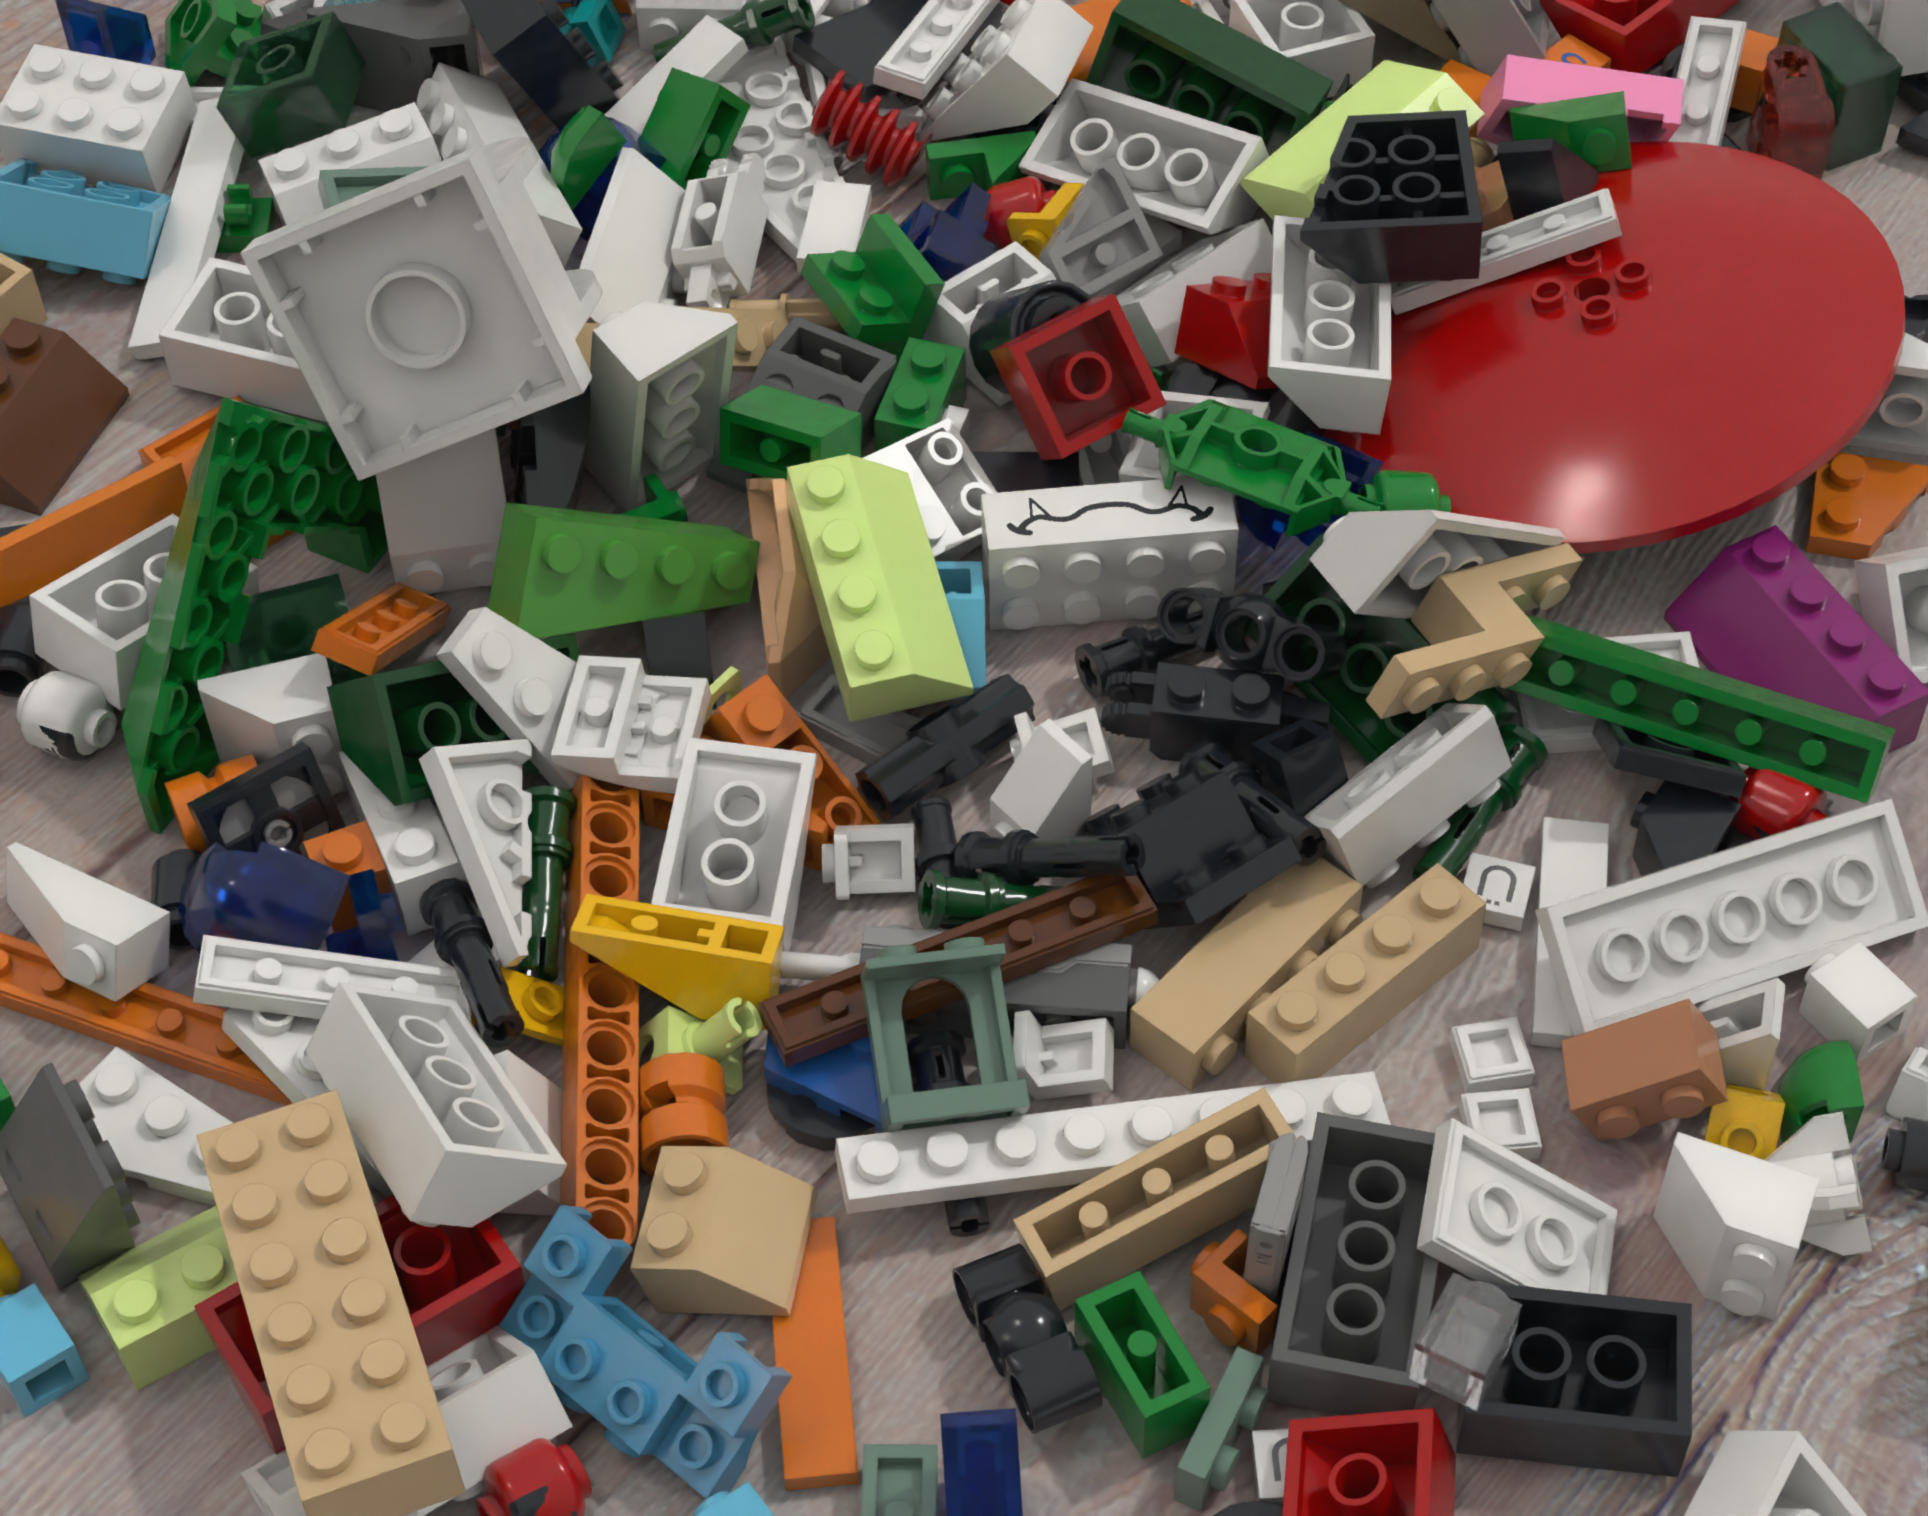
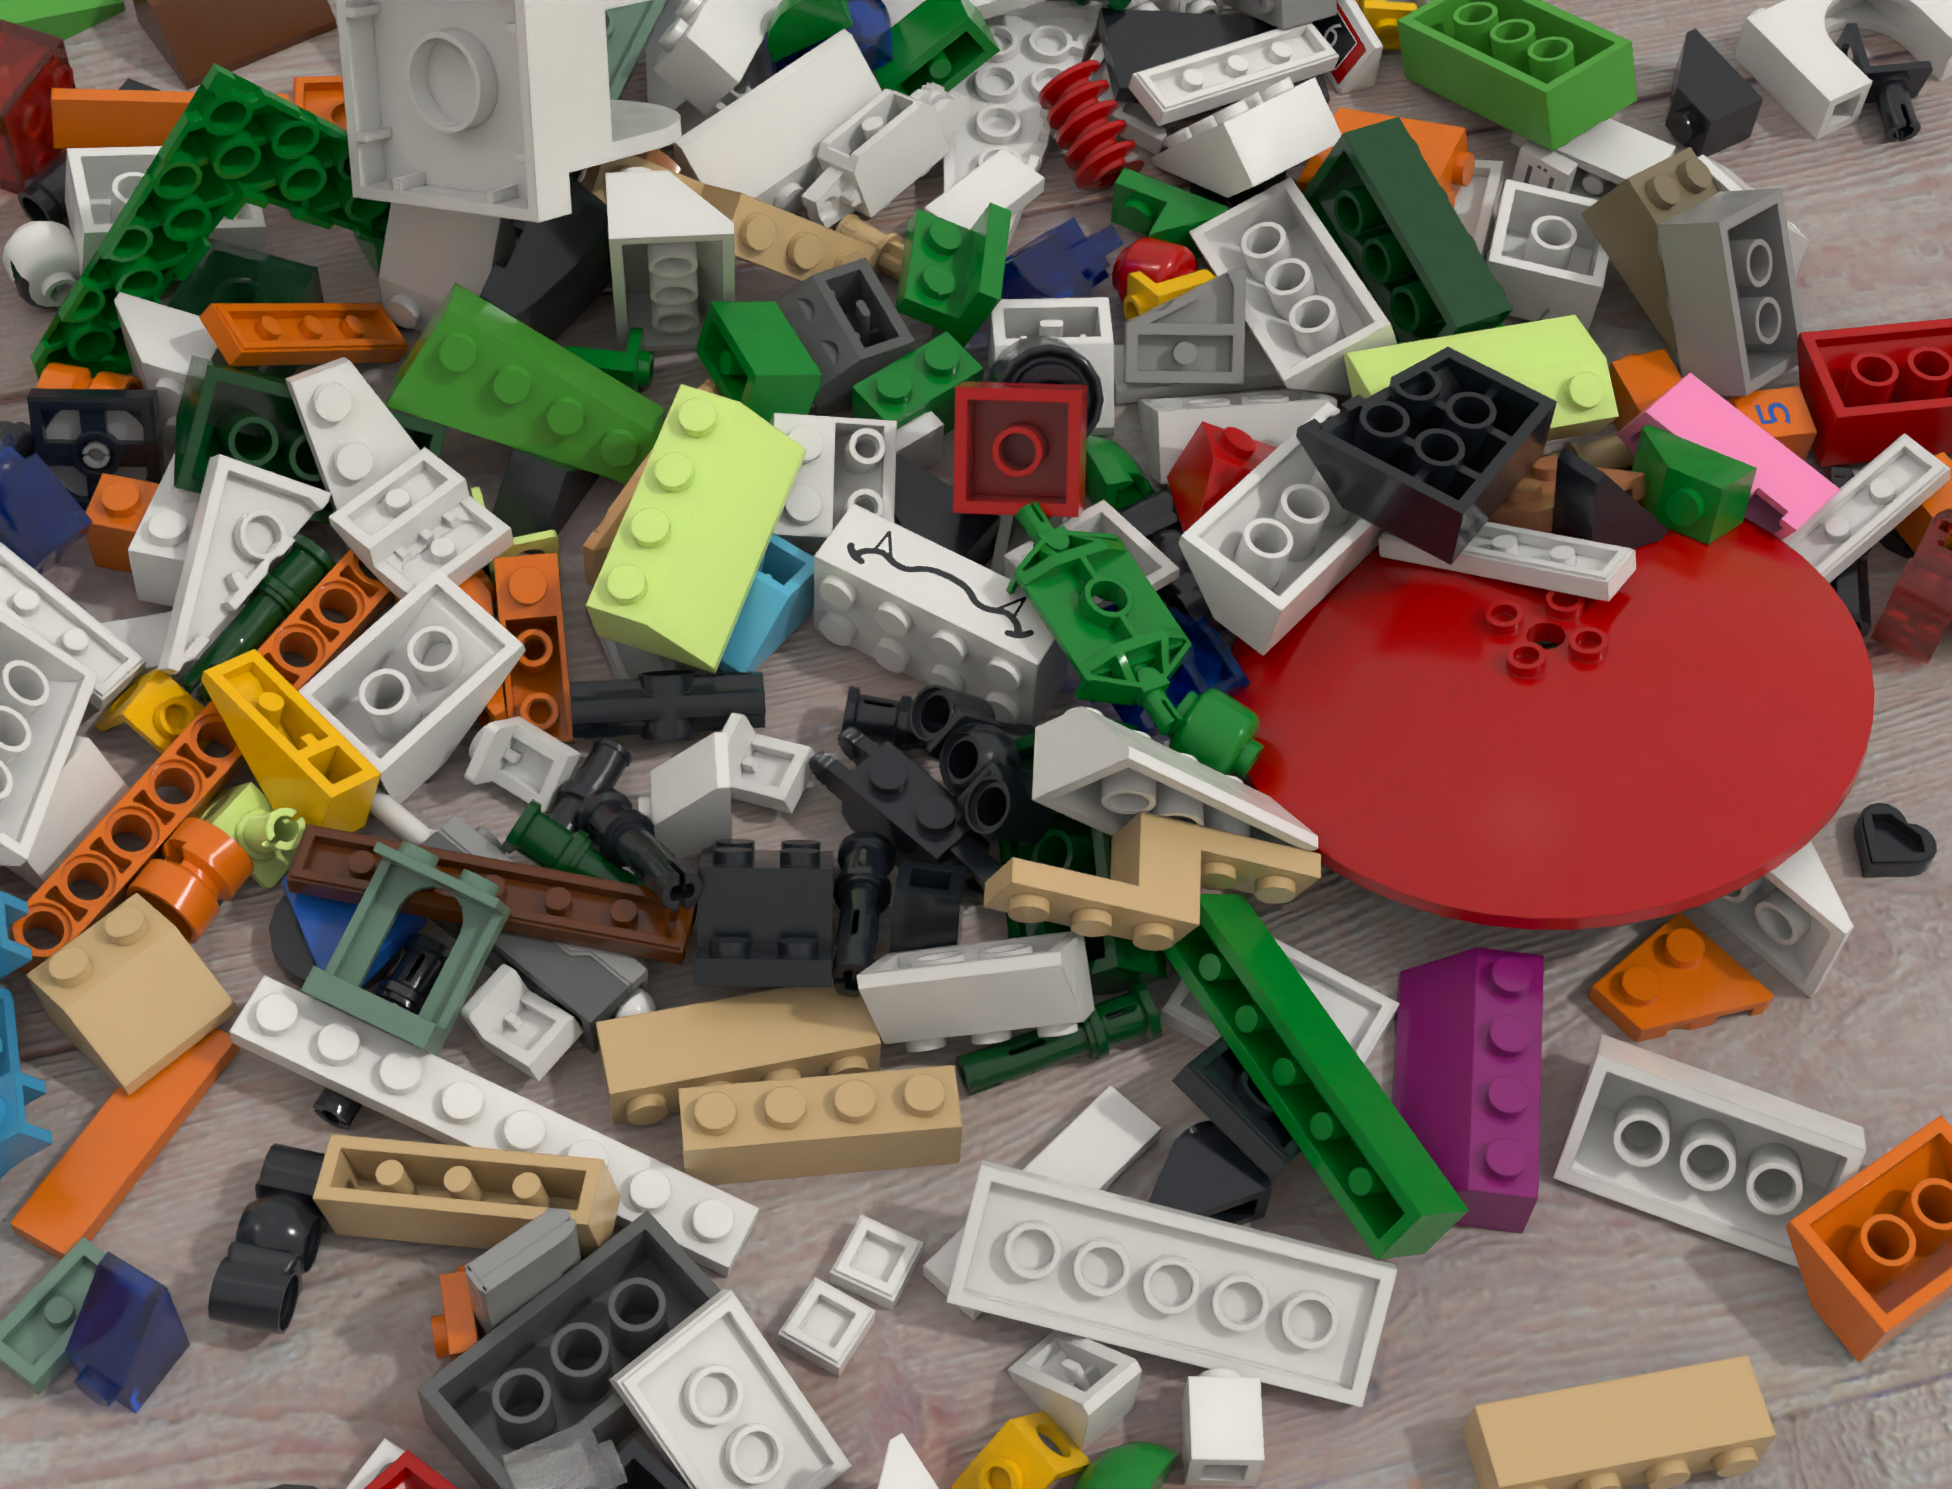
camera: 30 degrees right, 5 degrees up
(377, 920) = (101, 572): clear blue bracket -> none
(467, 946) = (137, 656): black pin -> none
(1141, 1363) = (336, 1322): green brick -> none
(1210, 1453) = (335, 1429): sand green plate -> none
(1502, 886) = (1013, 1123): white tile -> none
(1644, 1071) = (964, 1363): nougat brick -> none
(1776, 803) = (1308, 1209): red head -> none

